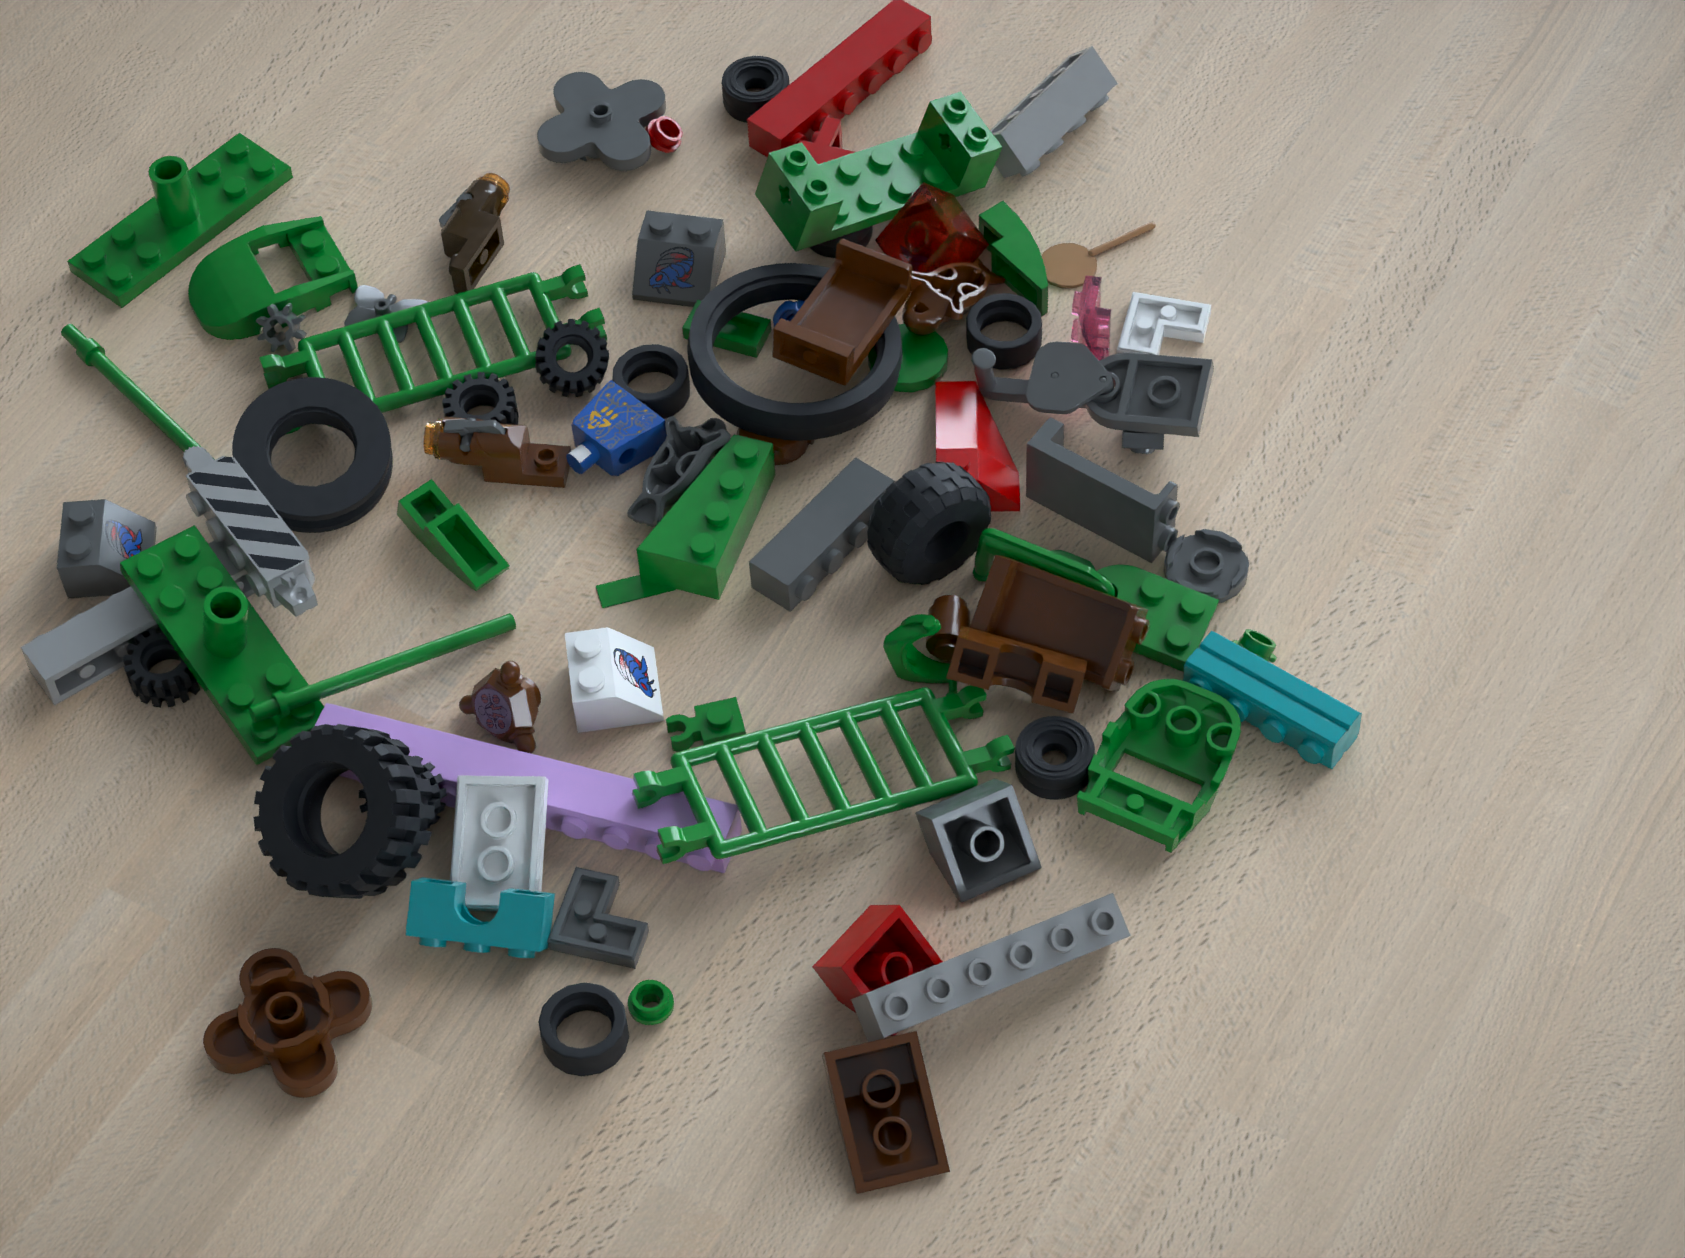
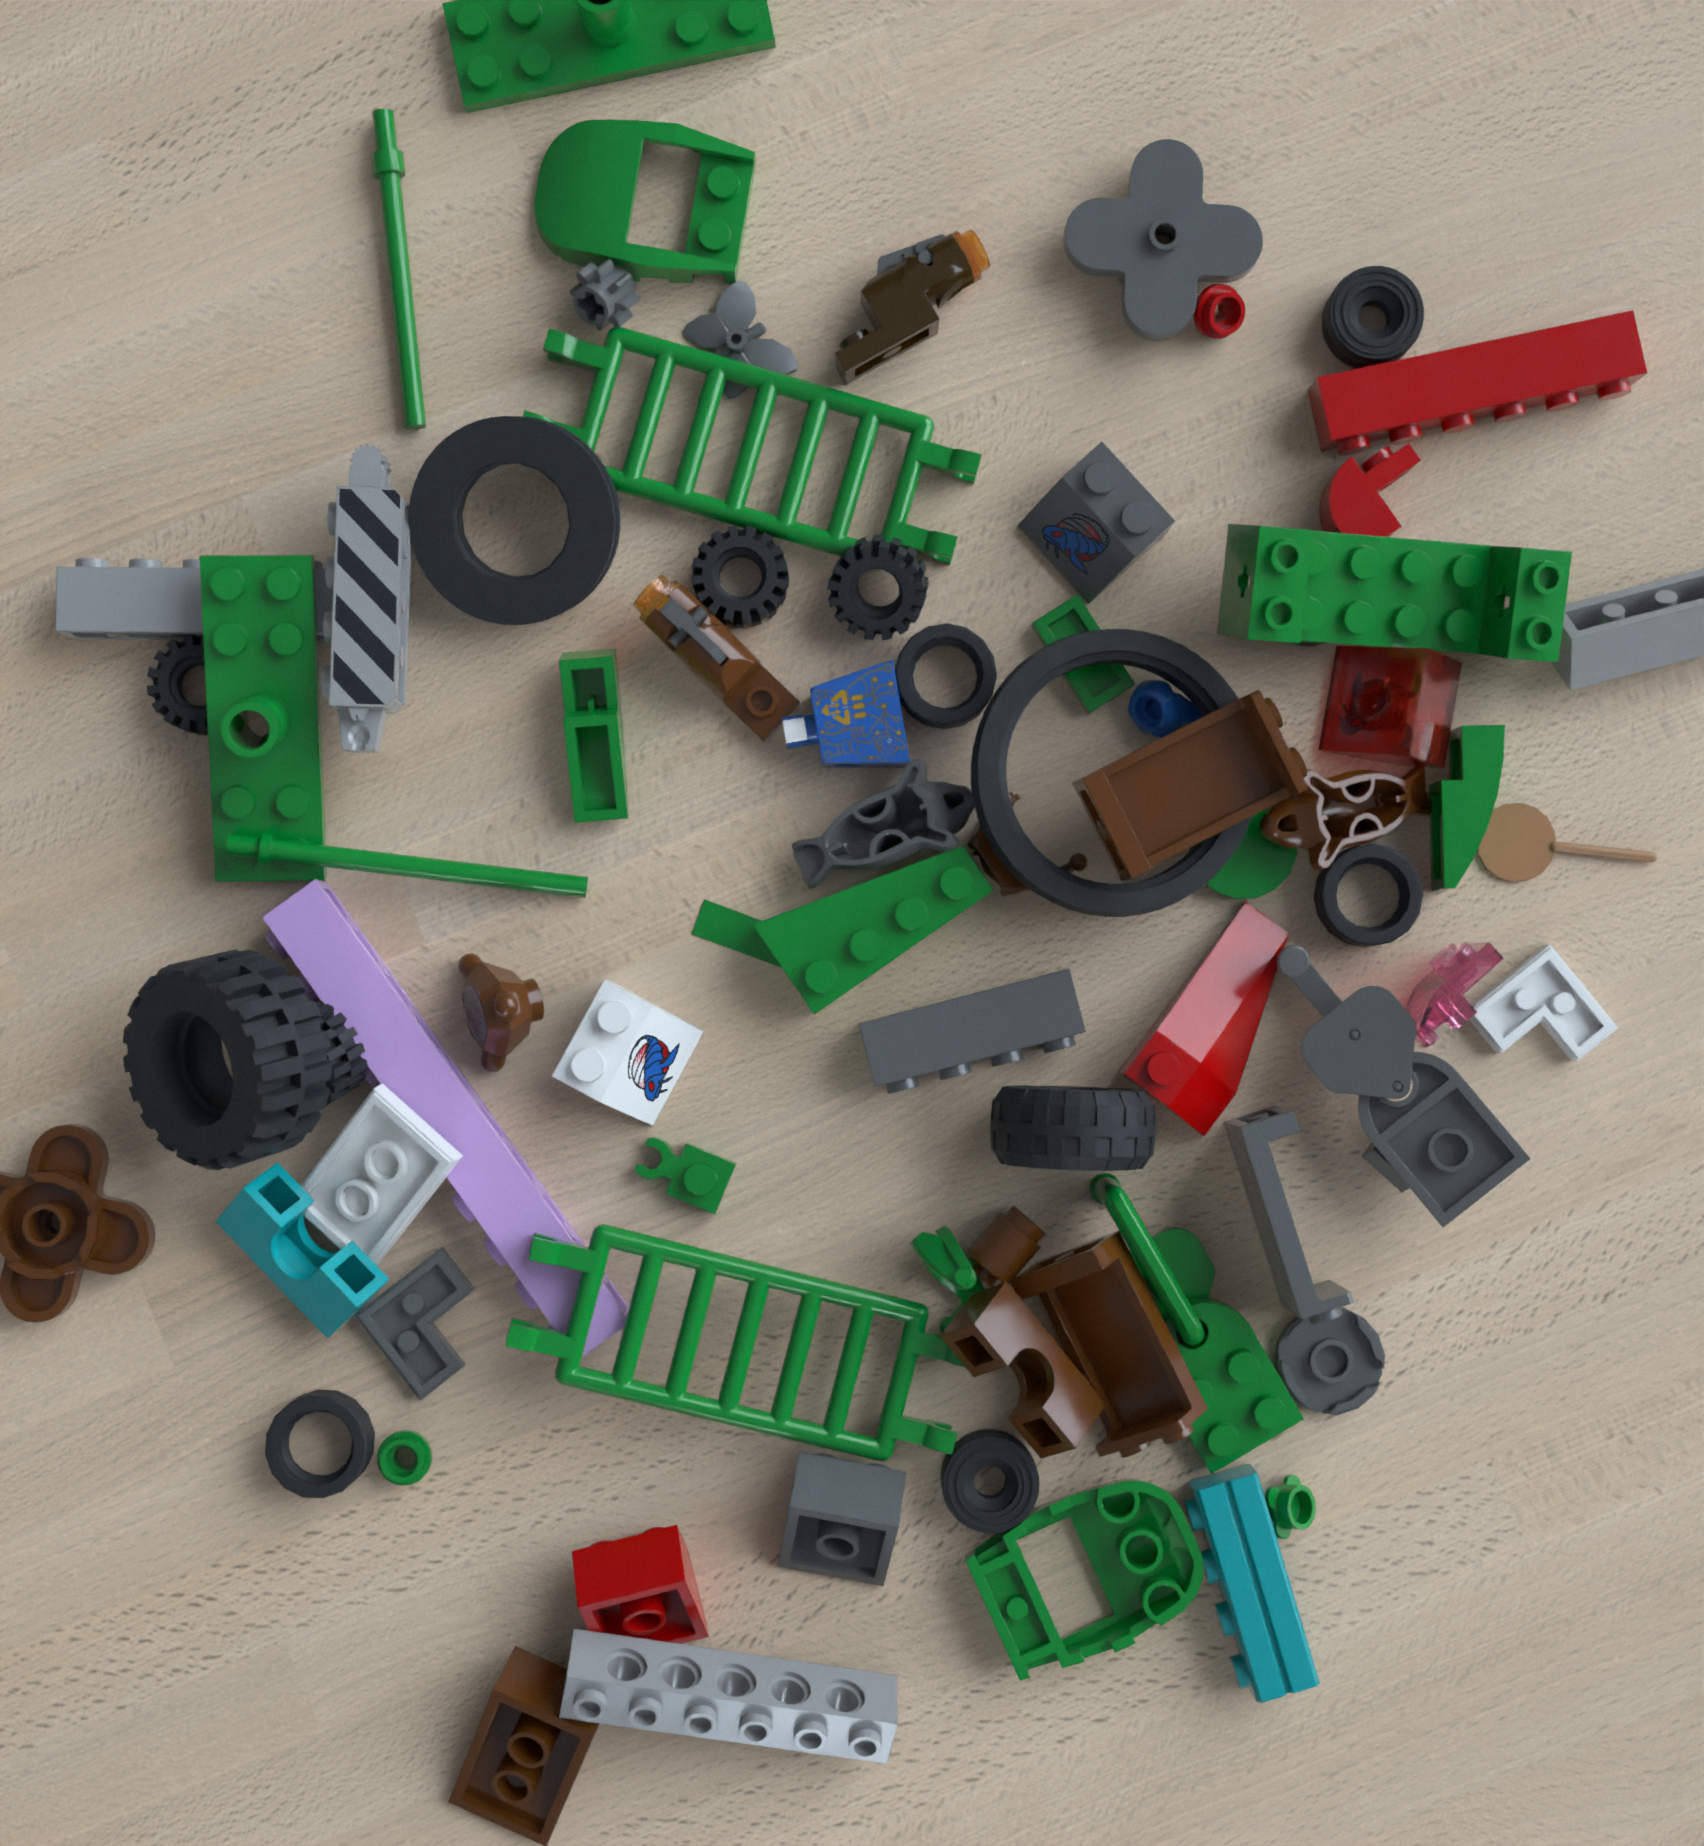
camera: 35 degrees right, 35 degrees up
(94, 542) = (232, 479): dark grey slope -> none

